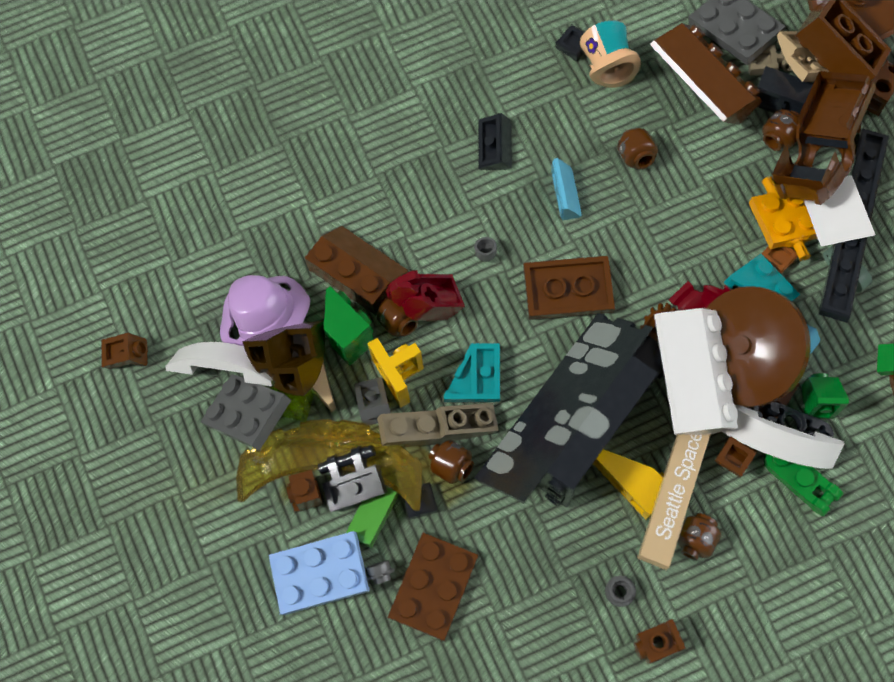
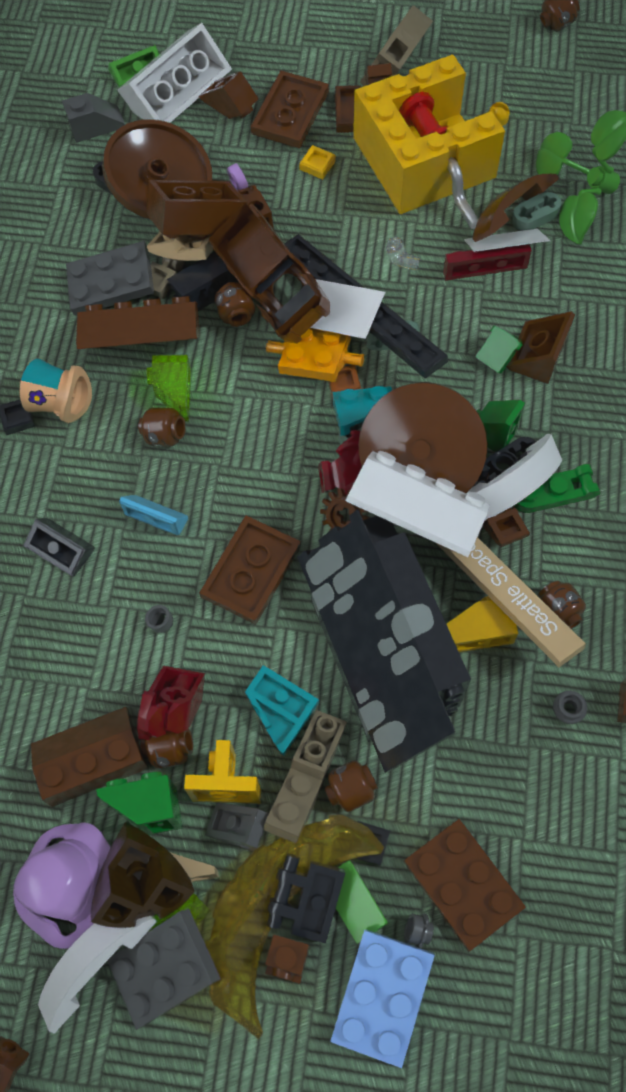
camera: 60 degrees left, 5 degrees down
(680, 131) = (171, 381): none -> clear neon green slope

